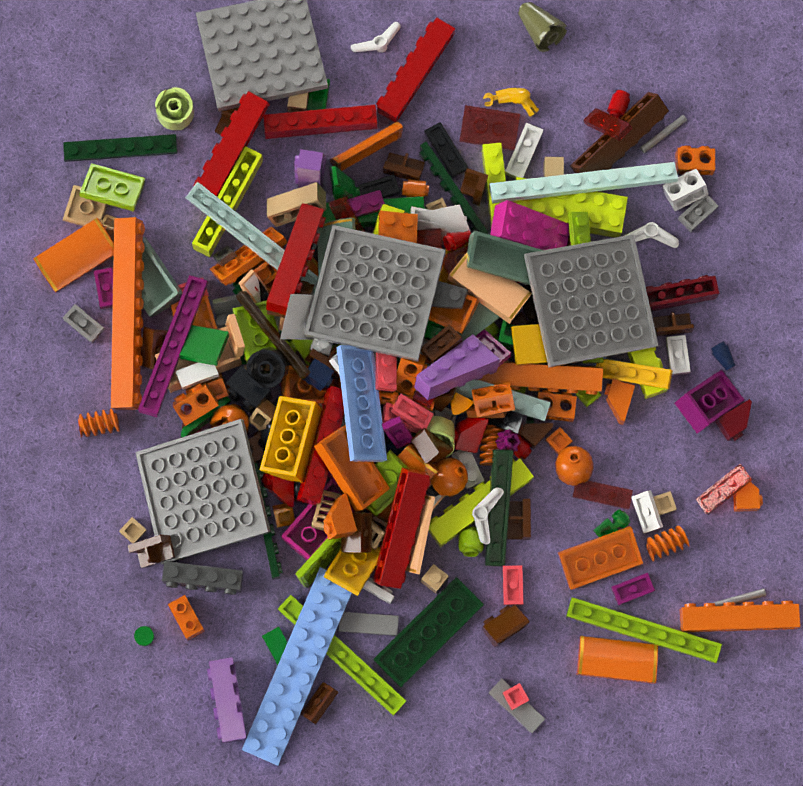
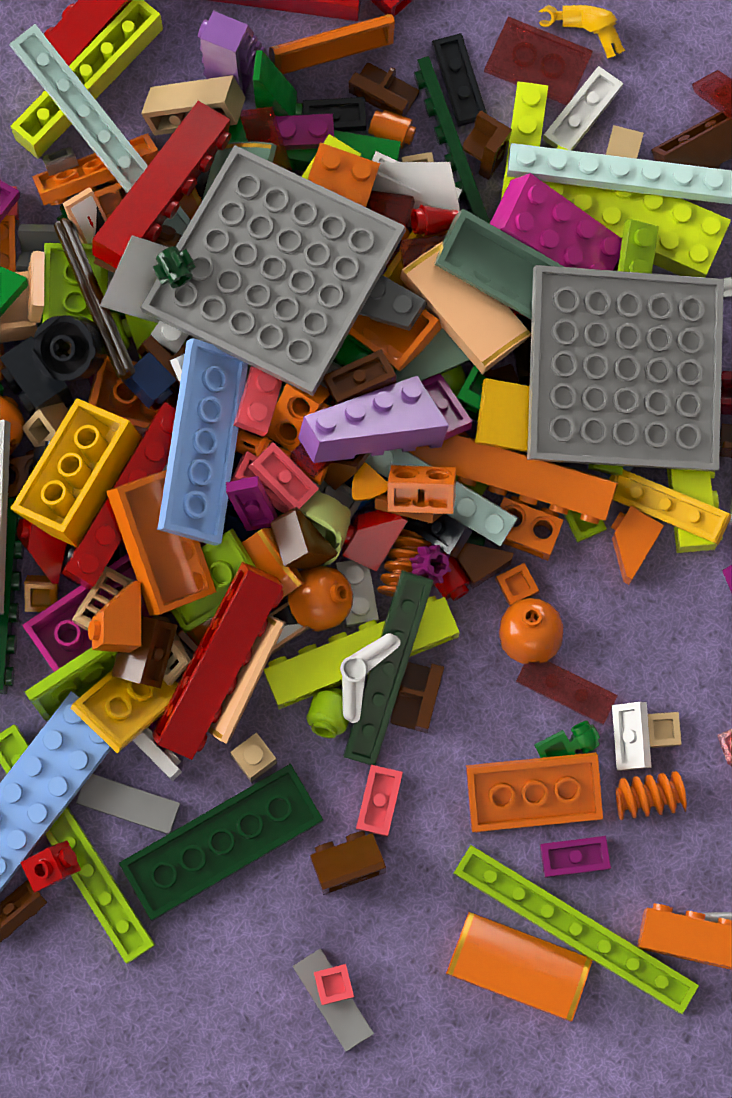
camera: 20 degrees right, 0 degrees up
(318, 306) = (174, 267): none -> dark green gear
(335, 670) = (50, 866): none -> red brick

